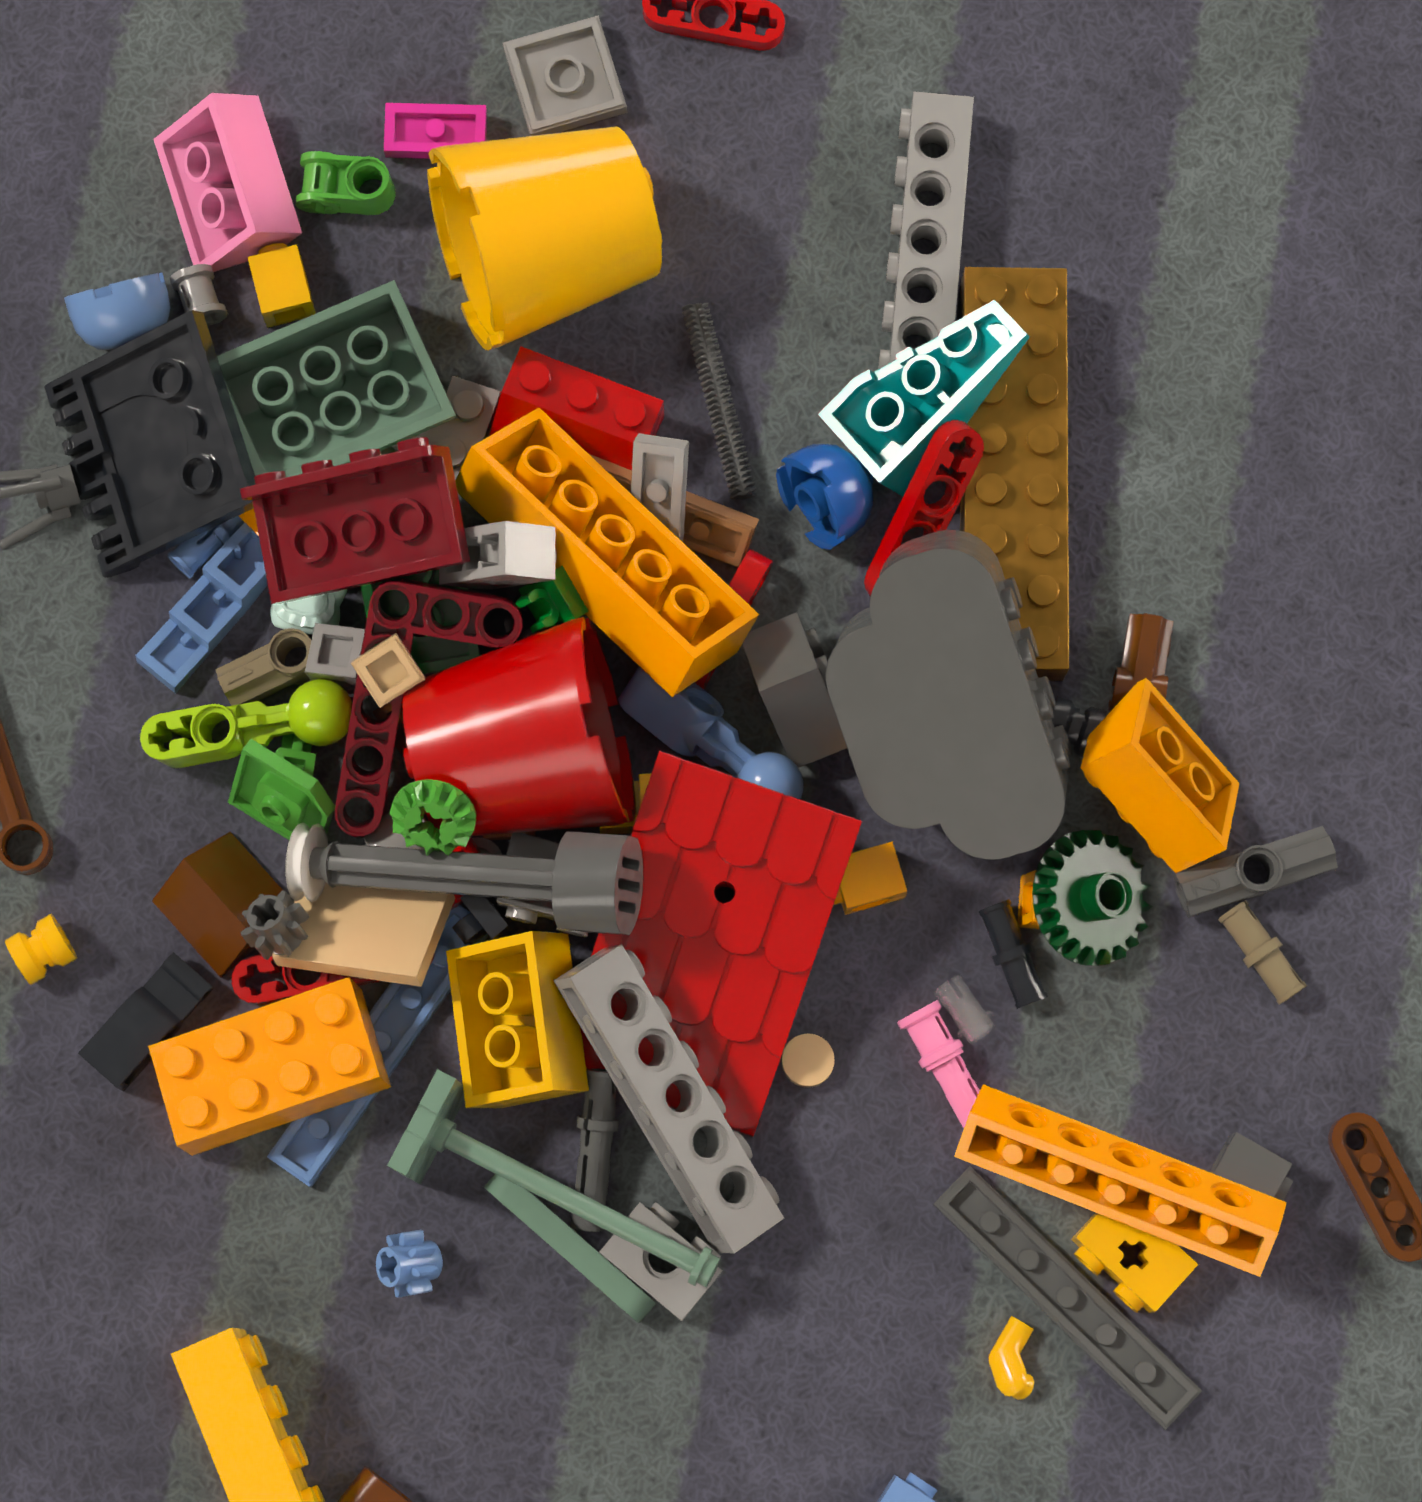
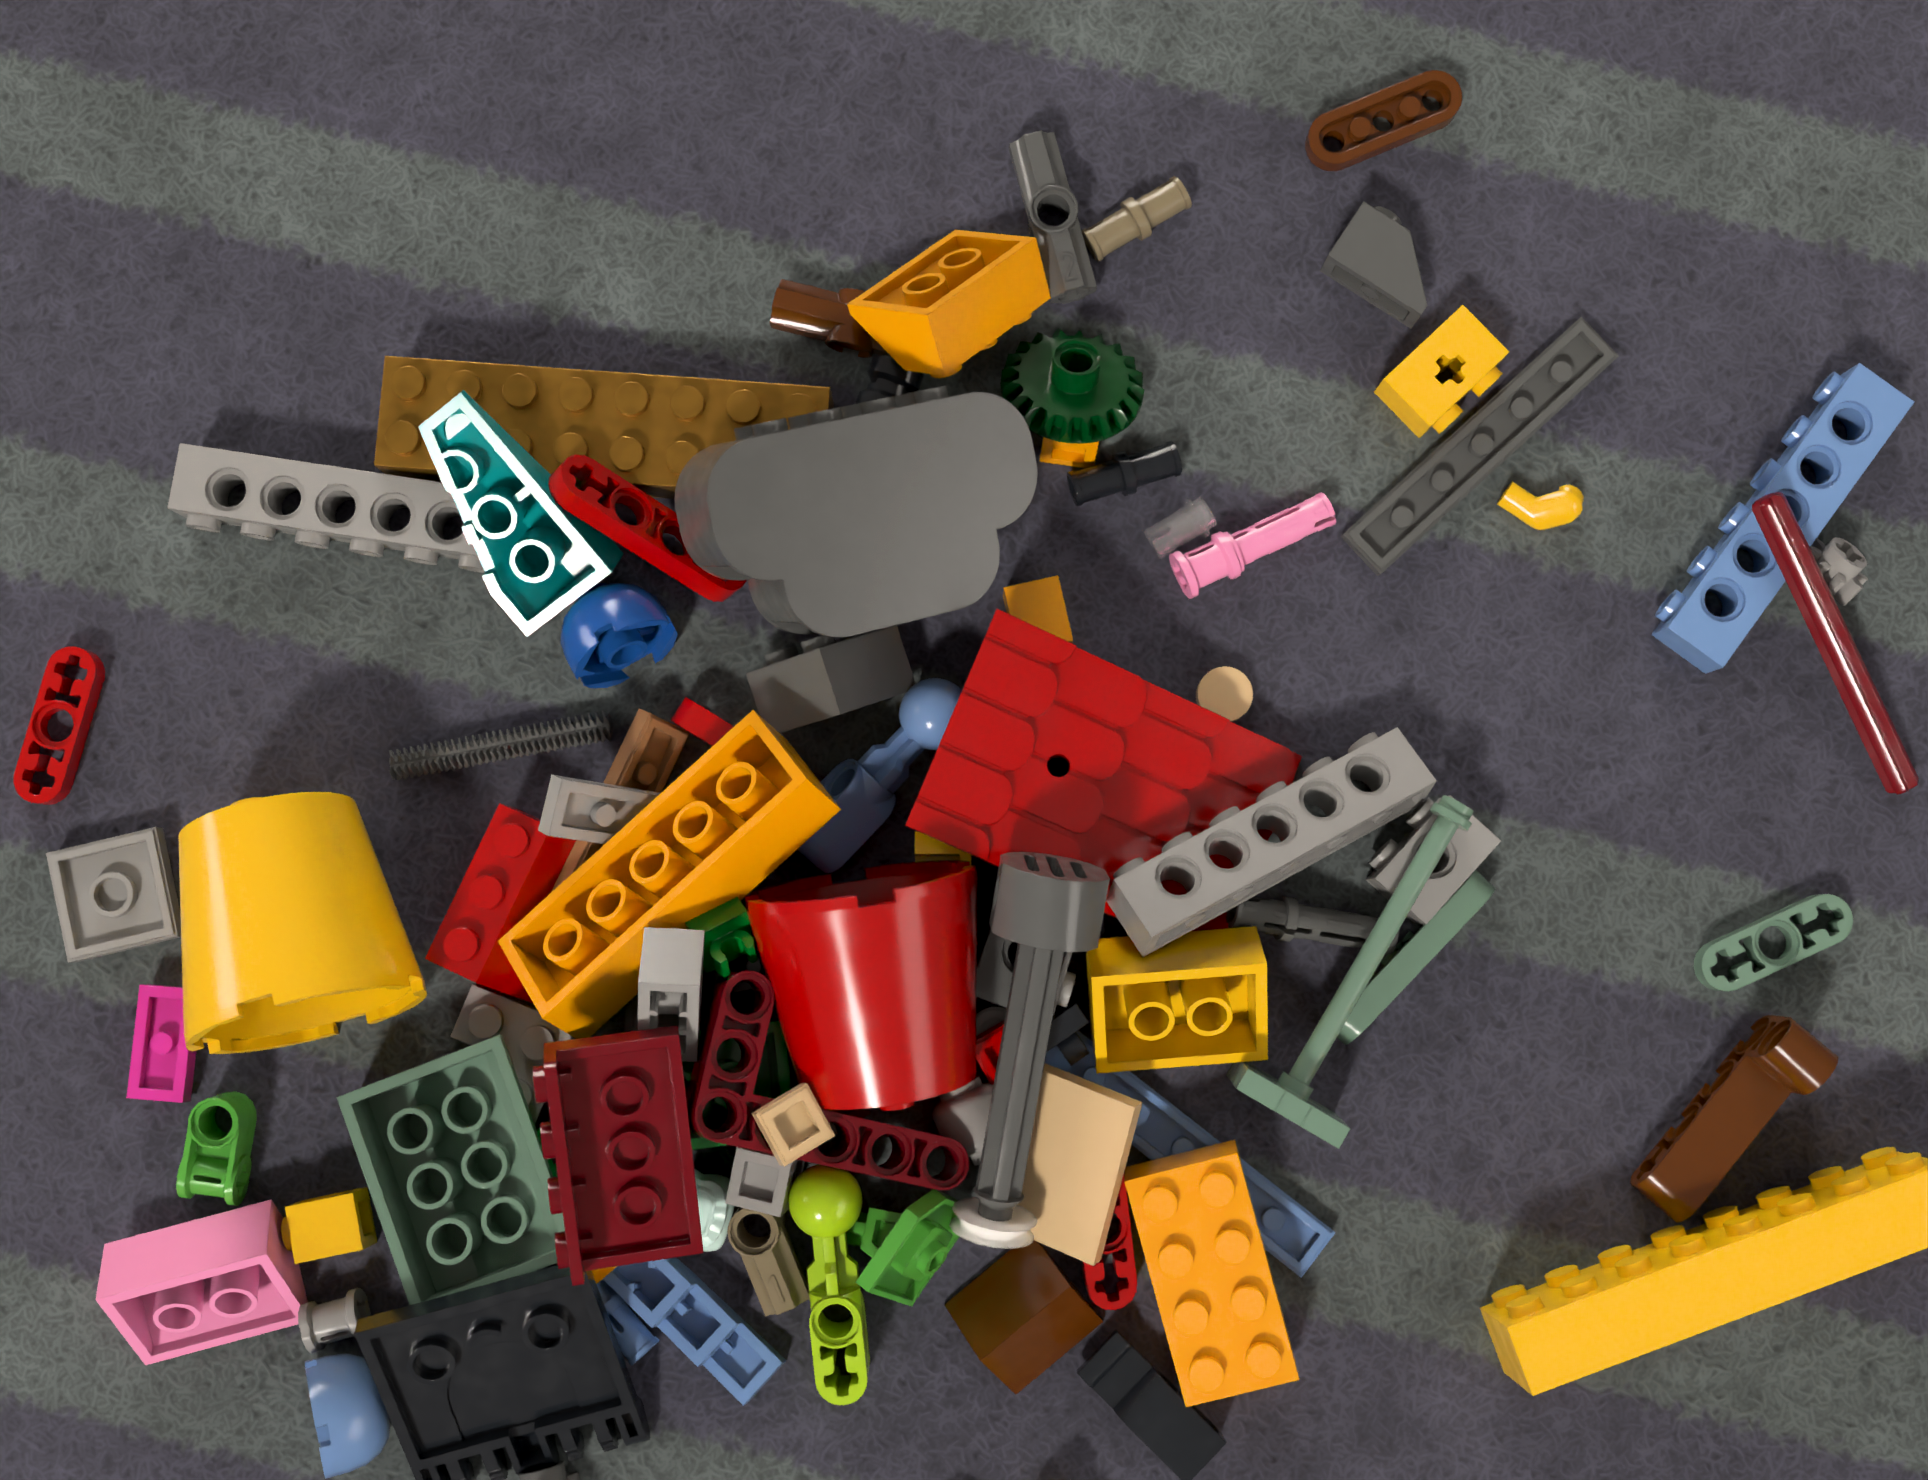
camera: 85 degrees left, 5 degrees up
(274, 925) = (1059, 1276): dark grey gear -> none
(409, 1263) = (1424, 1128): medium blue gear -> none
(441, 801) = (951, 1071): bright green gear -> none
(1121, 1180) = (1383, 369): light orange brick -> none

